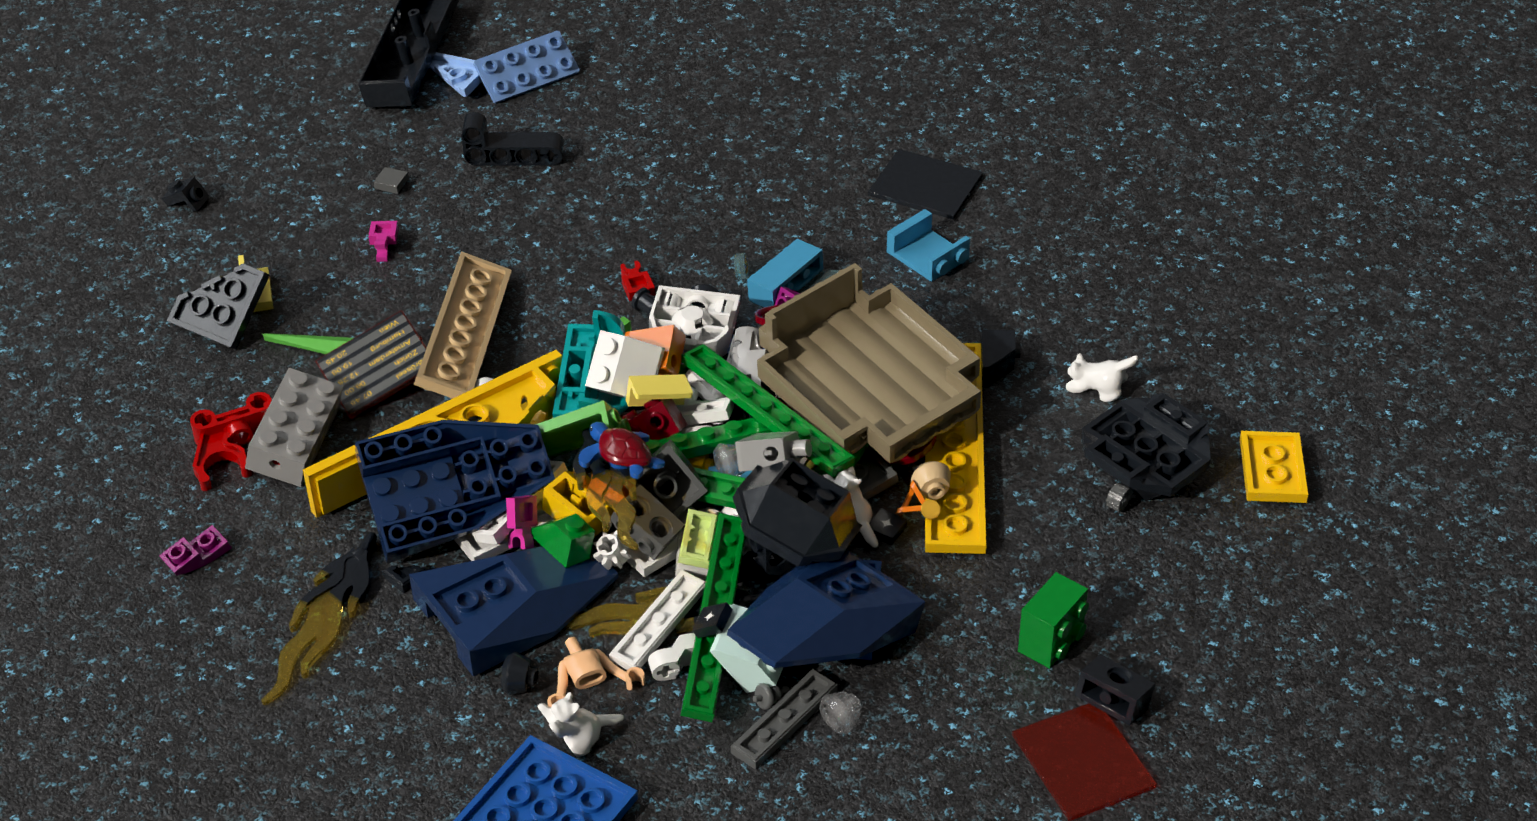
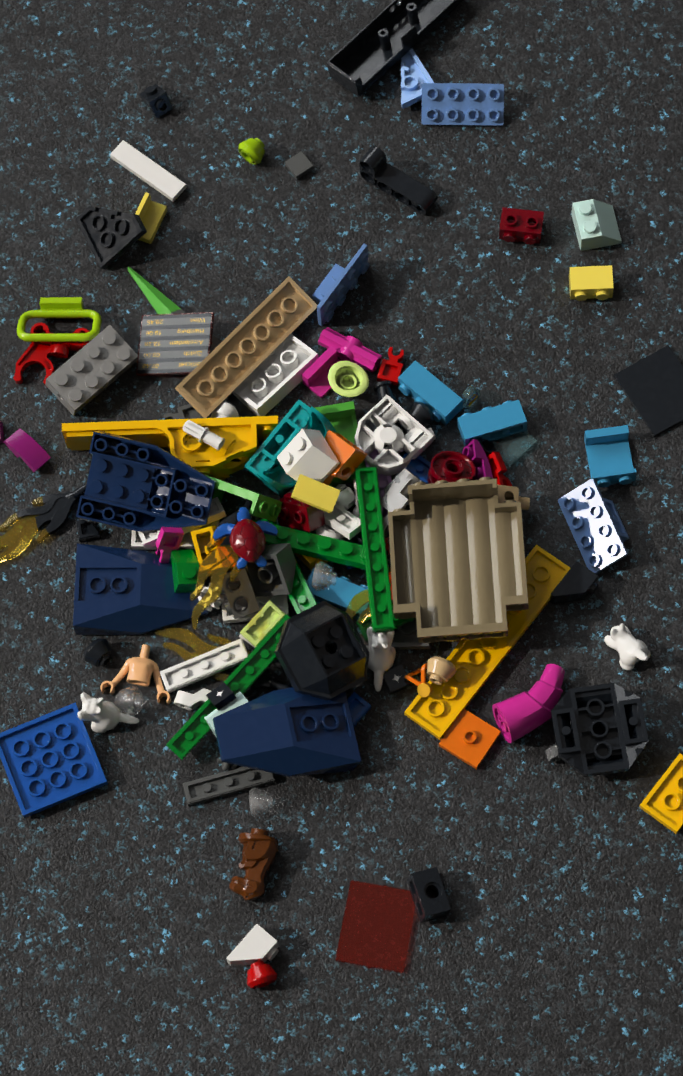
camera: 40 degrees right, 25 degrees up
(216, 394) = (59, 308): none -> lime bar
(221, 251) = (148, 170): none -> white tile
(260, 532) = (28, 449): none -> magenta slope
(329, 186) = (252, 150): none -> lime cone
(381, 235) = (256, 220): dark pink plate -> none
(486, 397) = (203, 434): none -> white axle
(516, 246) = (337, 284): none -> medium blue bracket
(516, 336) = (276, 376): none -> white slope
(564, 313) = (317, 374): none -> dark pink panel
(578, 287) = (350, 349): none -> dark pink piece
(596, 697) = (129, 700): none -> clear cone
(600, 300) = (348, 379): none -> yellowish green hat
(669, 124) = (521, 225): none -> dark red brick
(688, 273) = (428, 389): none -> dark azure brick
(738, 97) = (595, 224): none -> light aqua slope
(770, 448) = (345, 590): light grey torso -> none
(779, 134) = (591, 282): none -> light yellow brick
(888, 762) = (257, 857): none -> reddish brown animal
(967, 300) = (594, 526): none -> medium blue bracket
(1016, 536) = (469, 738): none -> orange plate
(1053, 620) = (428, 824): green brick -> none
(1054, 473) = (532, 708): none -> dark pink piece

